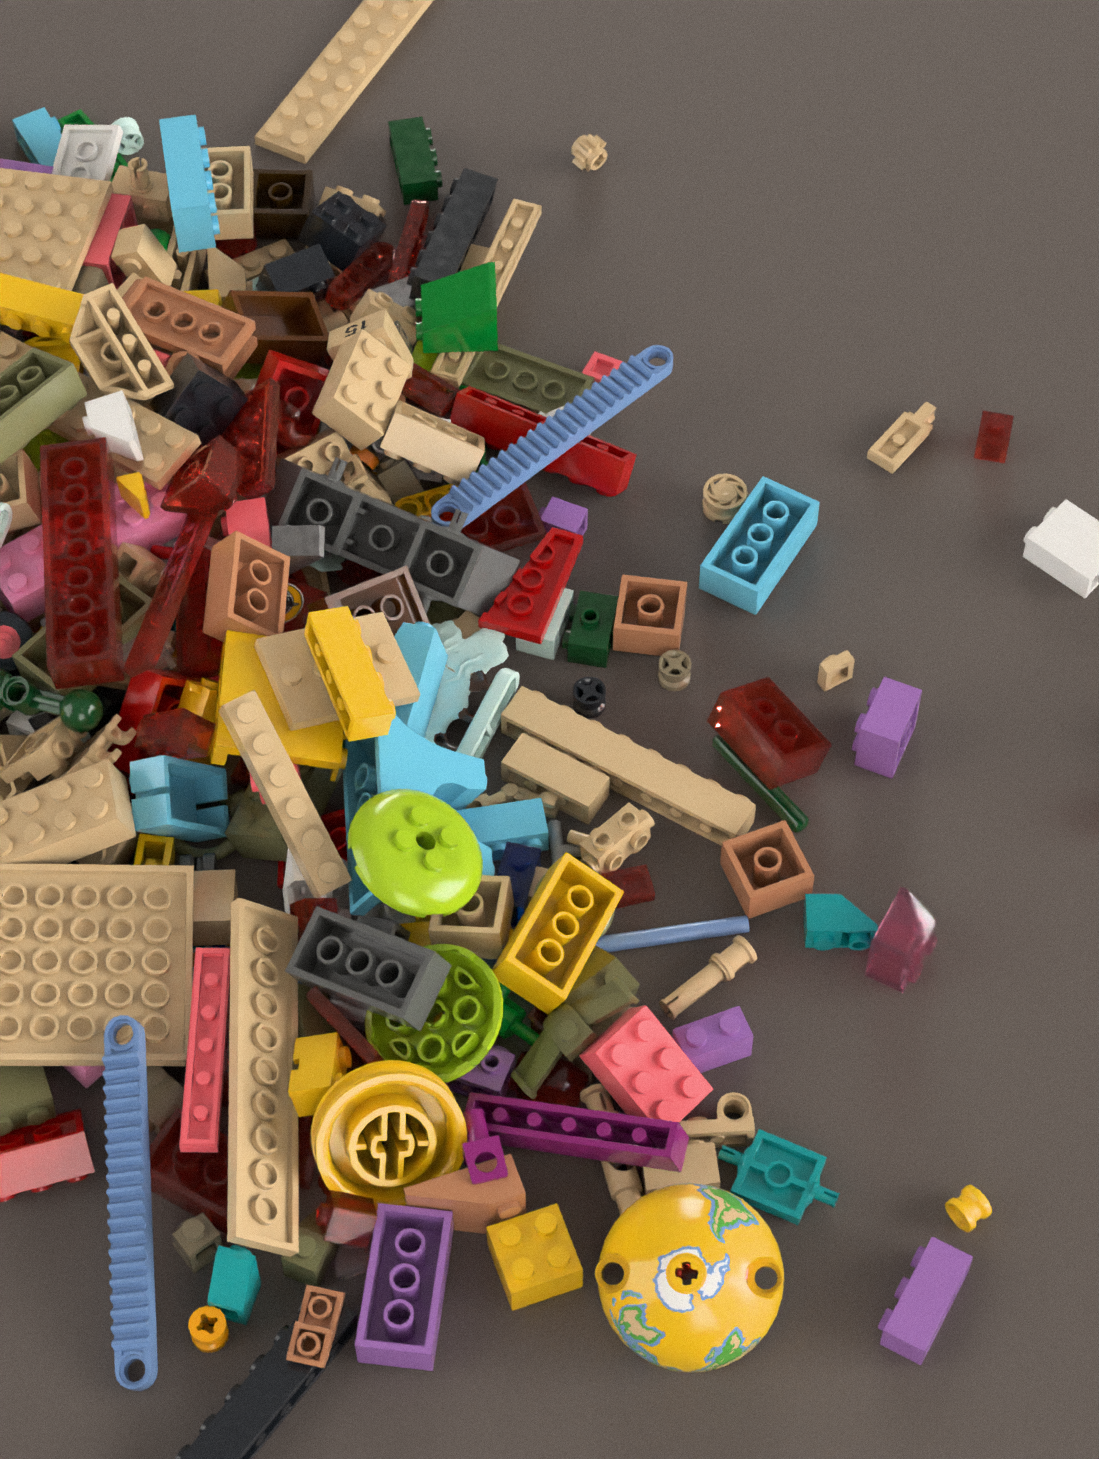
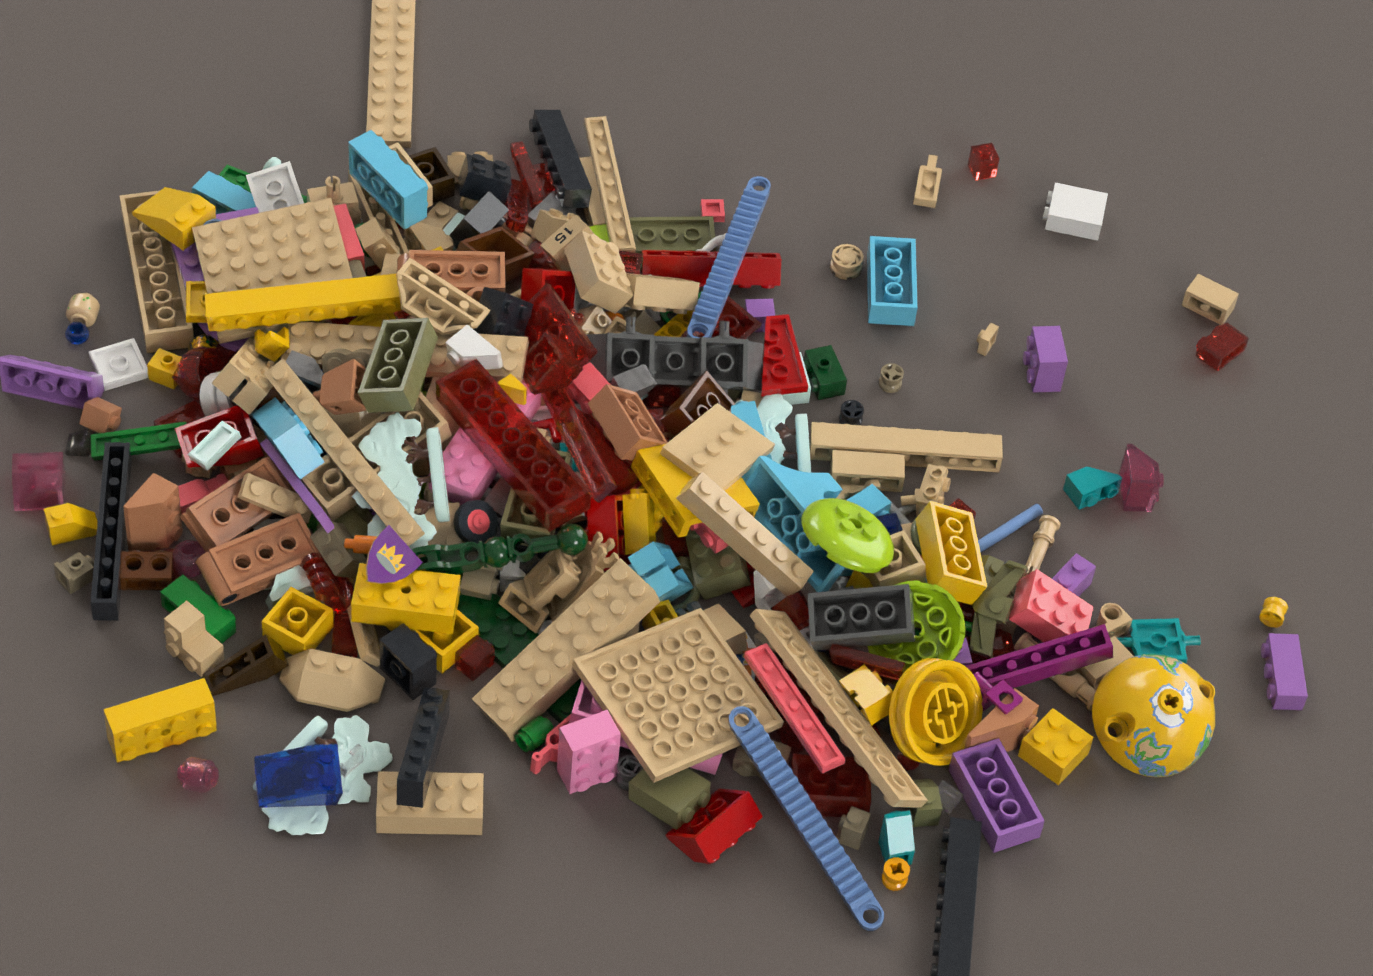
camera: 35 degrees left, 5 degrees down
(174, 734) = (644, 528): clear red brick -> none
(316, 1326) = (965, 837): nougat slope -> none
(347, 1219) = (940, 770): clear red brick -> none
(349, 673) = (737, 443): yellow brick -> none
(414, 159) = (488, 118): dark green brick -> none
(459, 312) = (615, 200): green slope -> none
(589, 152) = (602, 71): tan gear -> none
(649, 615) = (858, 348): nougat brick -> none
(766, 869) = (1032, 470): nougat brick -> none
(769, 732) = (979, 390): clear red brick -> none
(775, 798) = (987, 423): dark green axle -> none

